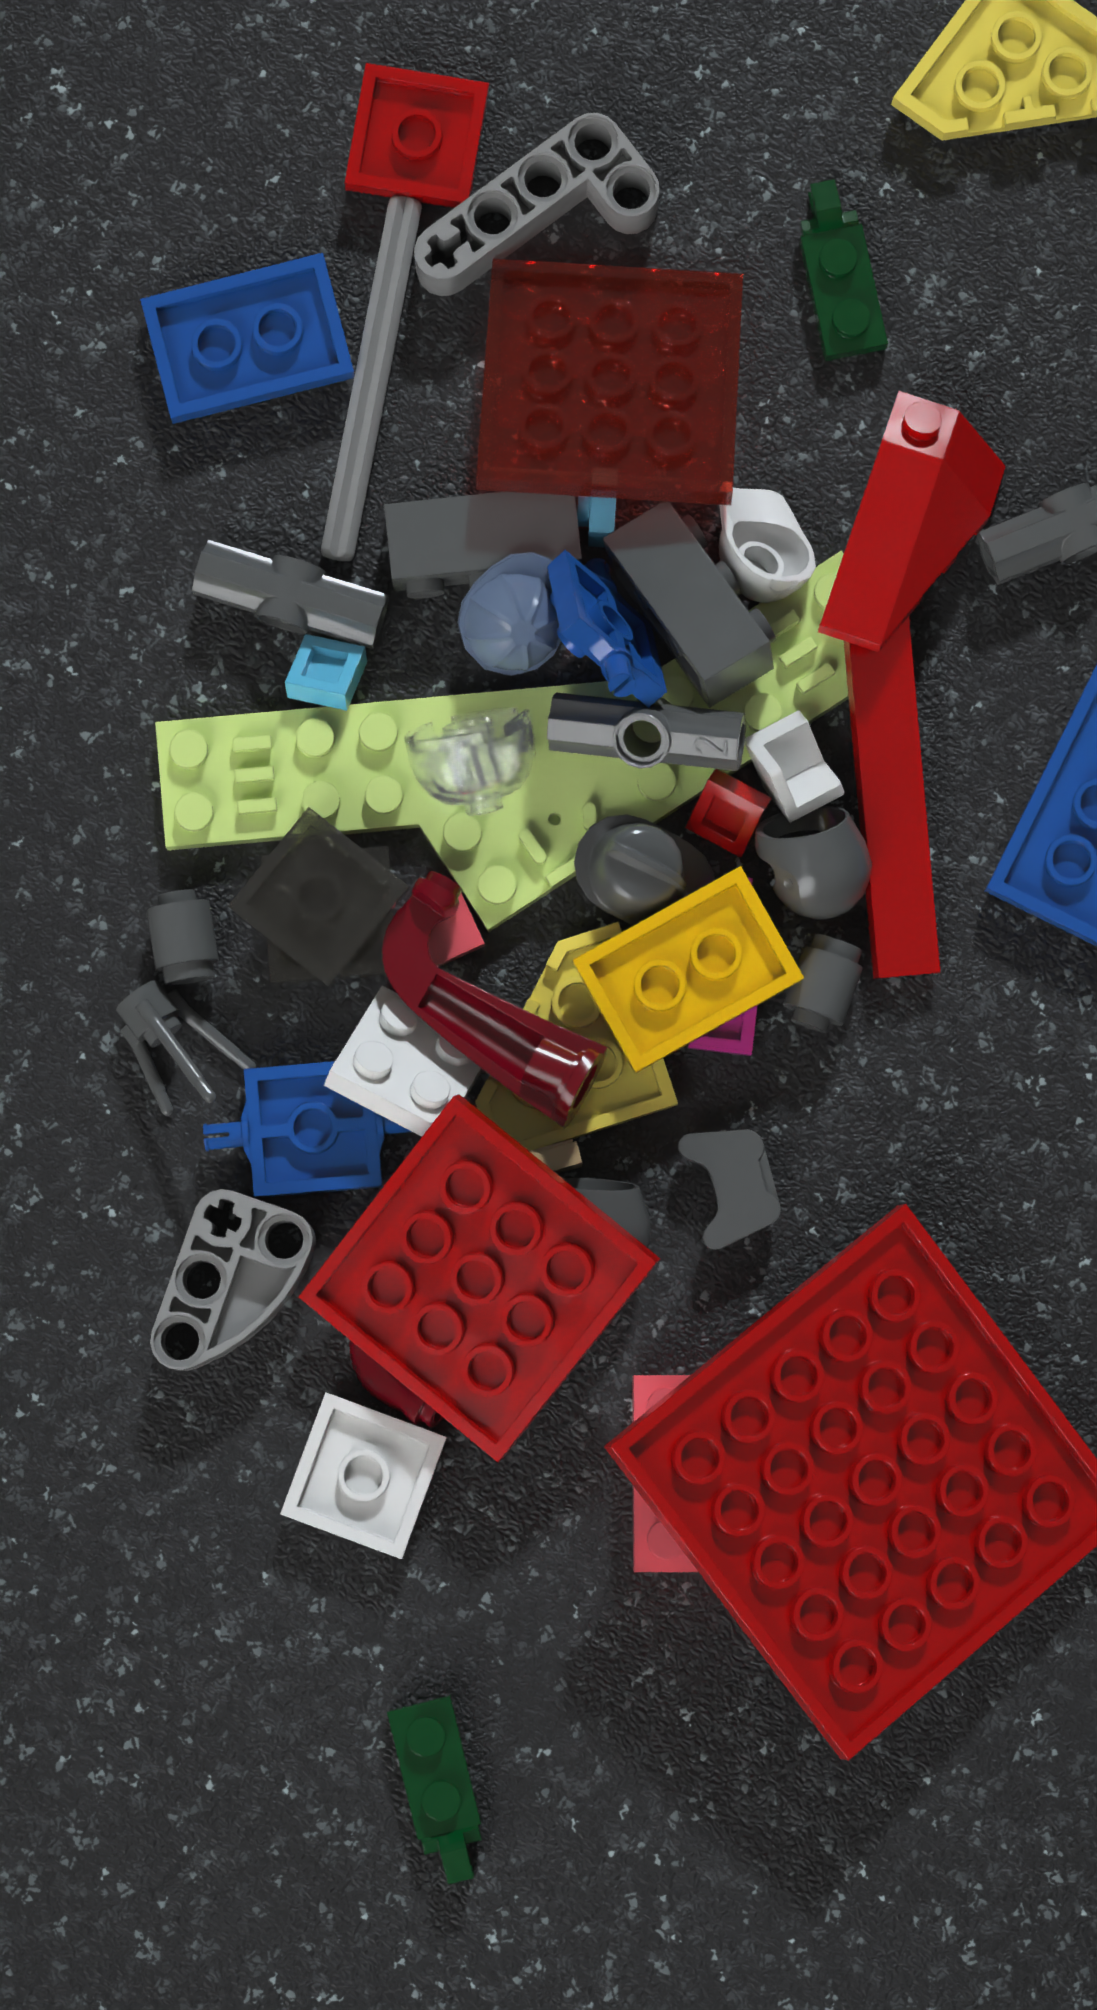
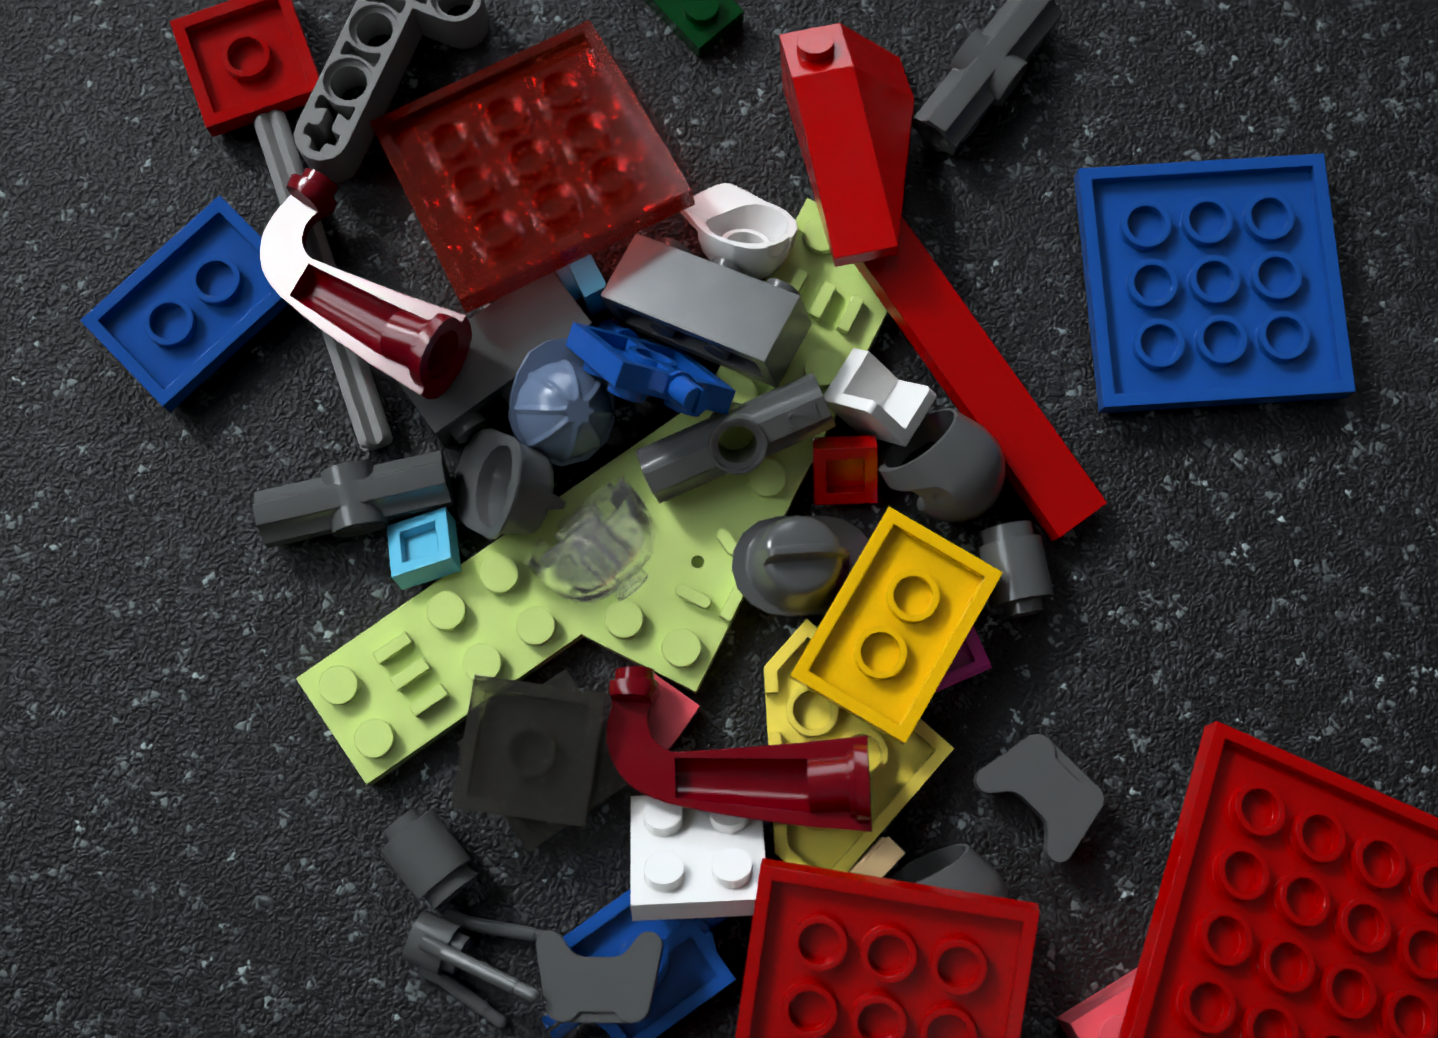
camera: 30 degrees left, 5 degrees down
(267, 1123) = (598, 987): none -> dark grey piece
(400, 464) = (389, 330): none -> animal
(423, 658) = (503, 486): none -> dark grey piece

